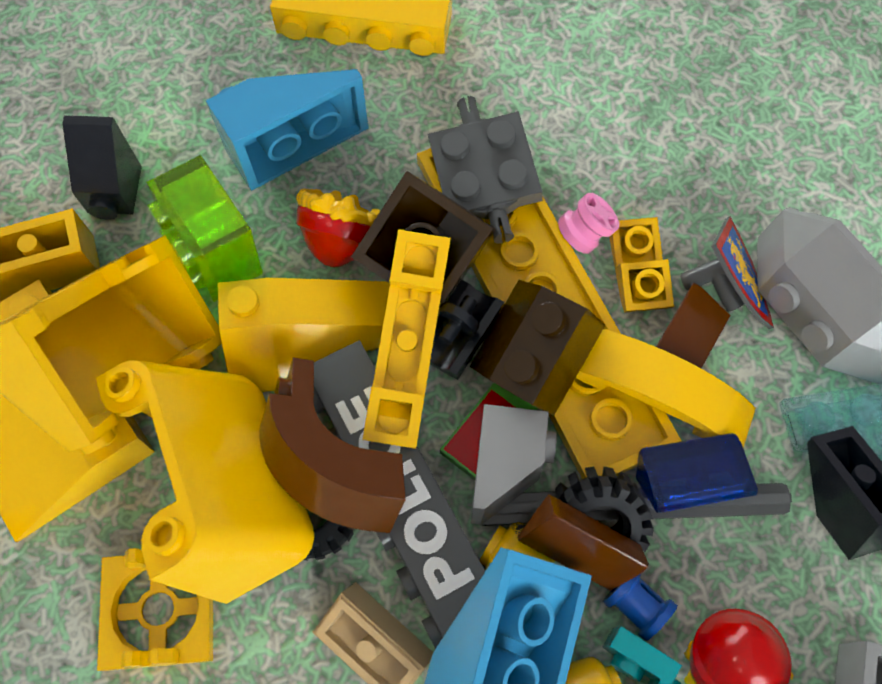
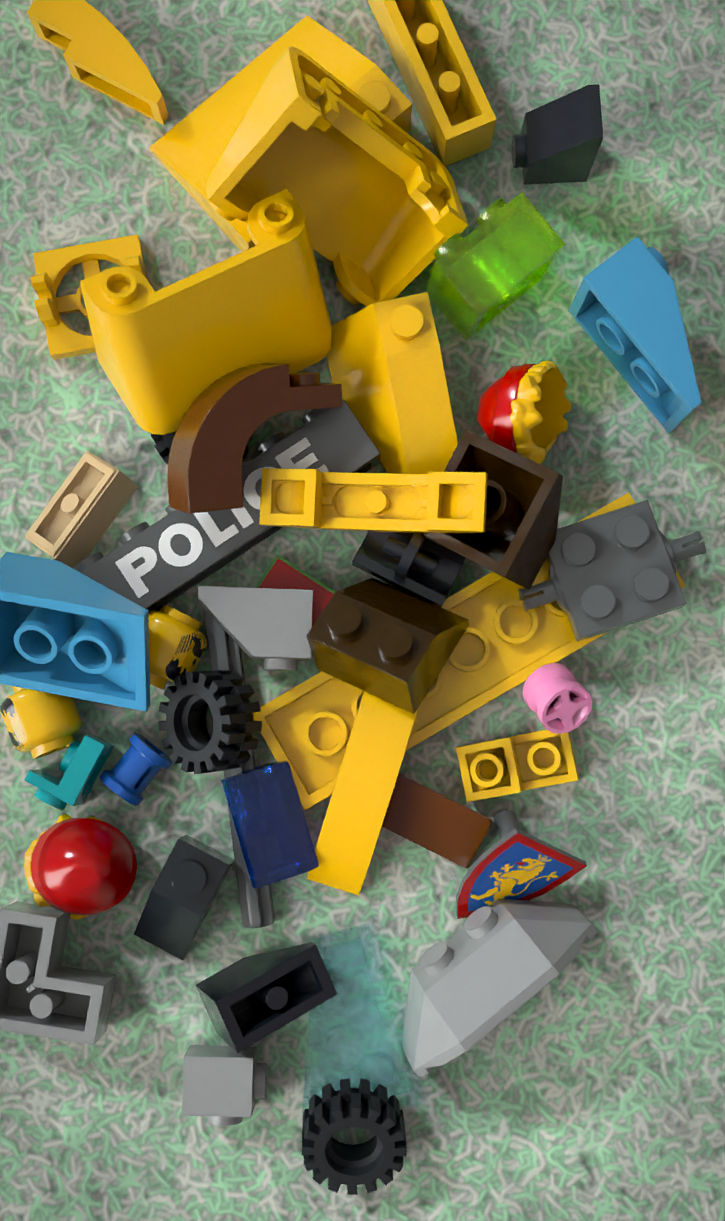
camera: 85 degrees right, 15 degrees up
(583, 544) = (178, 702): reddish brown slope -> none
(763, 563) = (182, 895): none -> black slope

